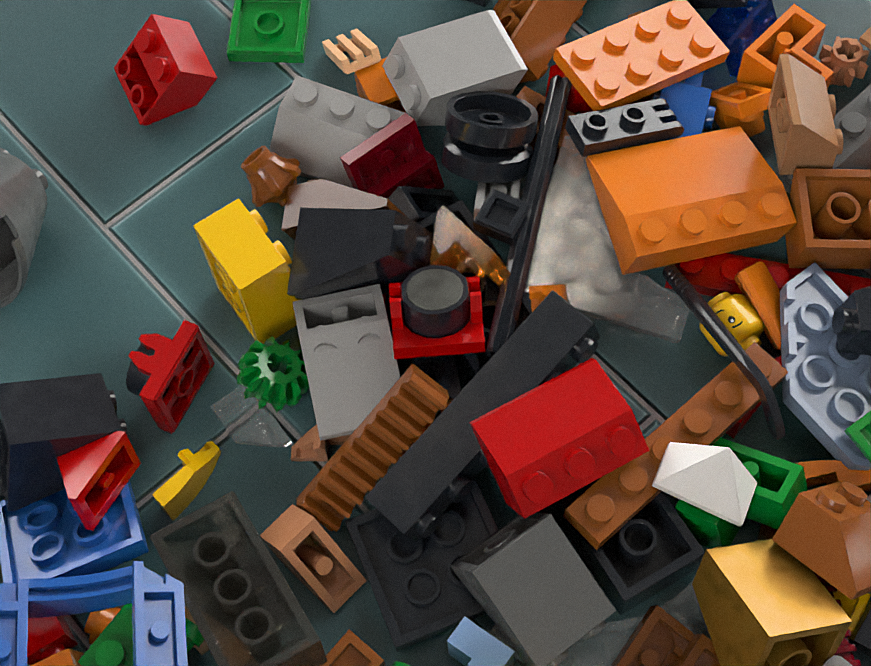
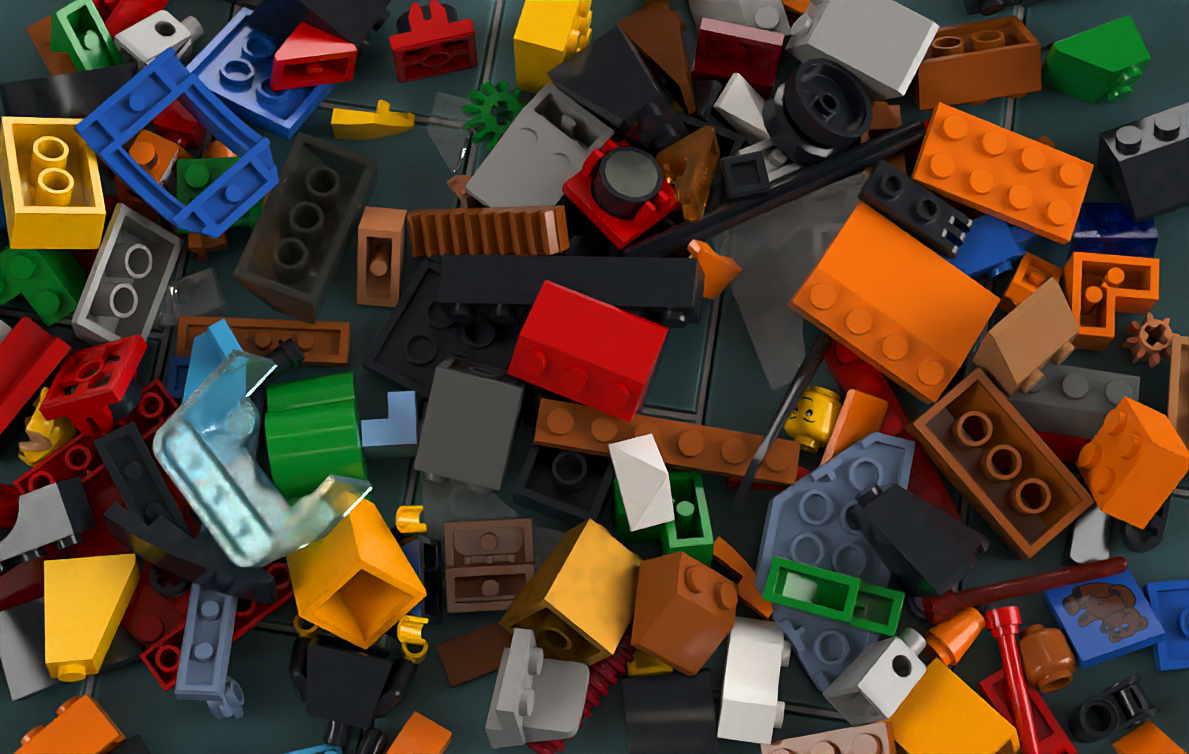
camera: 45 degrees right, 10 degrees up
(440, 189) = (743, 109): none -> white slope

